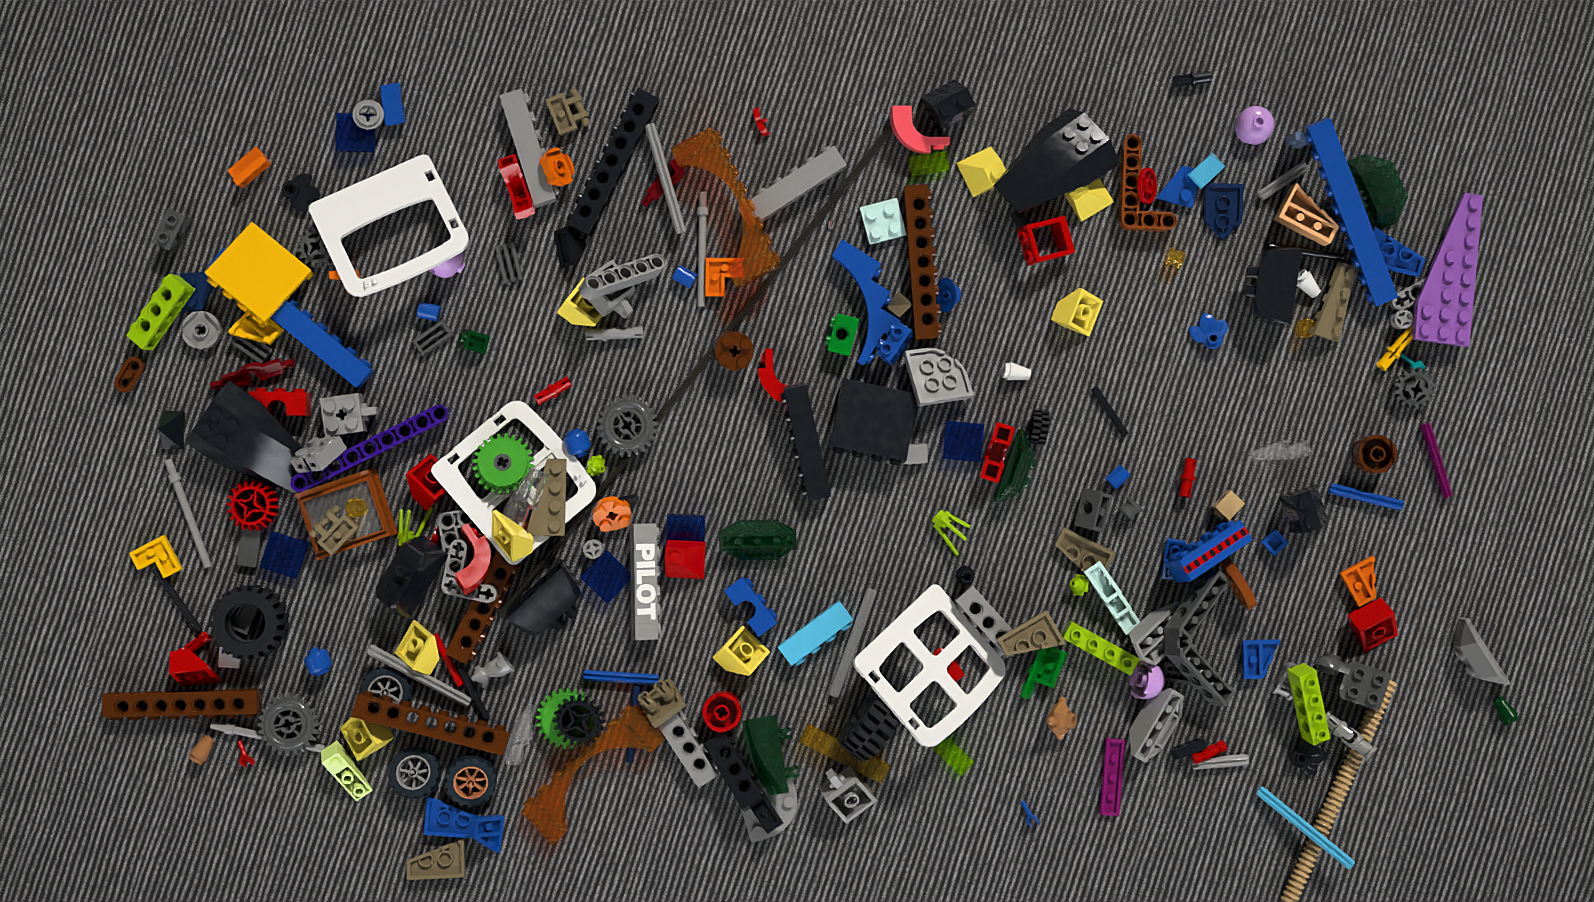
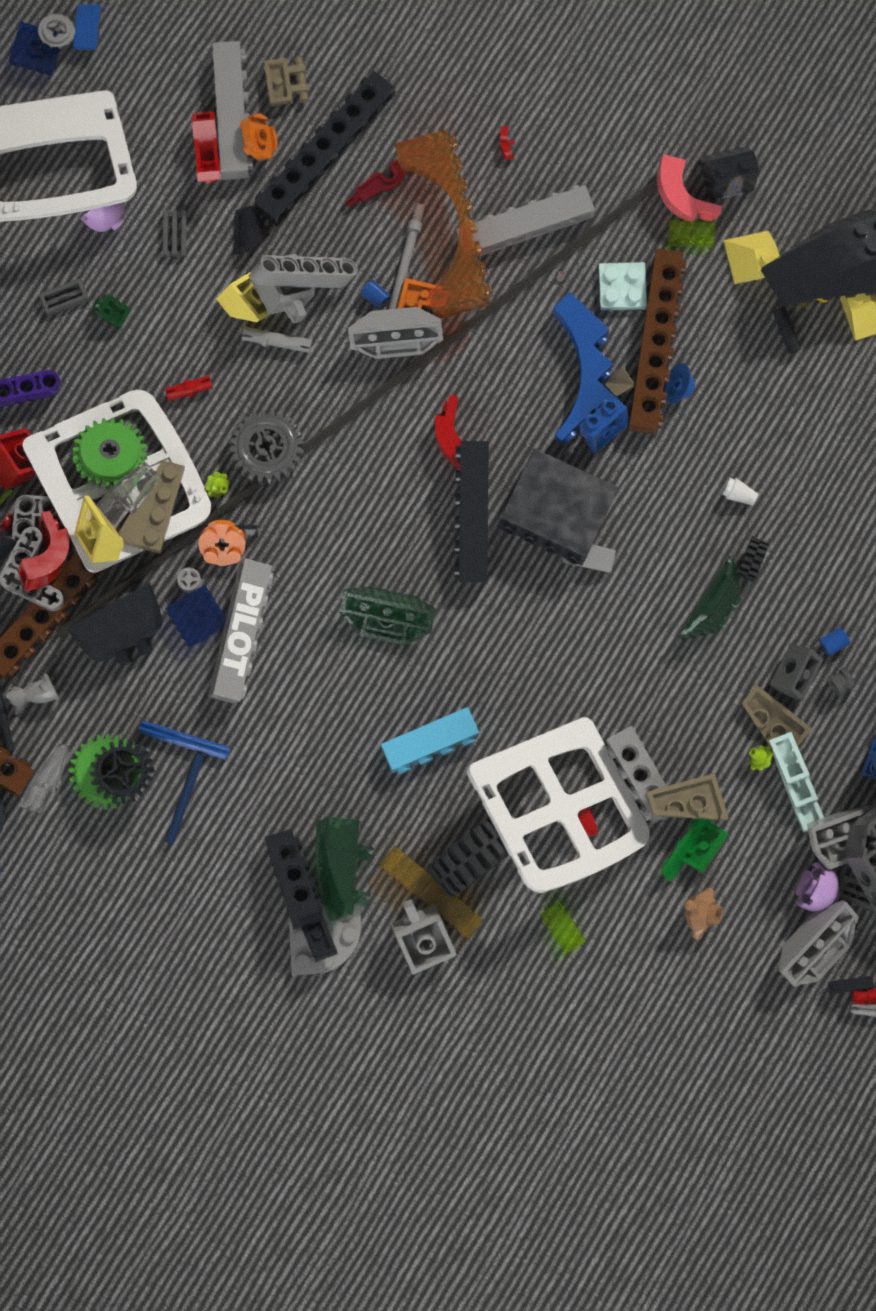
camera: 10 degrees right, 10 degrees down
(429, 311) = (67, 265): blue piece -> none
(548, 807) = (57, 871): clear orange arch -> none
(577, 442) = (202, 452): blue head -> none
(661, 702) = (225, 777): dark tan plate -> none
(665, 178) = (380, 178): light grey axle -> none
(685, 527) = (303, 588): clear blue plate -> none
(685, 559) = (295, 618): red slope -> none
(699, 775) = (226, 807): light grey brick -> none
(708, 307) = (395, 333): none -> light grey wedge
(727, 341) = (399, 392): reddish brown brick -> none
(728, 720) = (293, 792): red brick -> none
(741, 653) = (334, 742): light yellow slope -> none
(743, 591) = (354, 671): blue arch -> none
(849, 325) = (541, 415): green brick -> none
(852, 642) = (477, 754): light grey axle -> none
(936, 377) = (644, 474): light grey plate -> none
(942, 520) = (615, 643): lime plant -> none
(963, 441) = (659, 557): clear blue plate -> none
(964, 575) = (625, 715): black pin -> none
(995, 453) = (695, 577): red arch -> none
(1030, 816) = (639, 1023): blue hand -> none
(1061, 237) = (827, 342): red window -> none
(1077, 311) = (829, 439): light yellow slope -> none
(1099, 647) = (769, 837): lime brick -> none
(1109, 411) = (841, 563): black bar -> none
(1112, 776) = (750, 999): magenta tile -> none

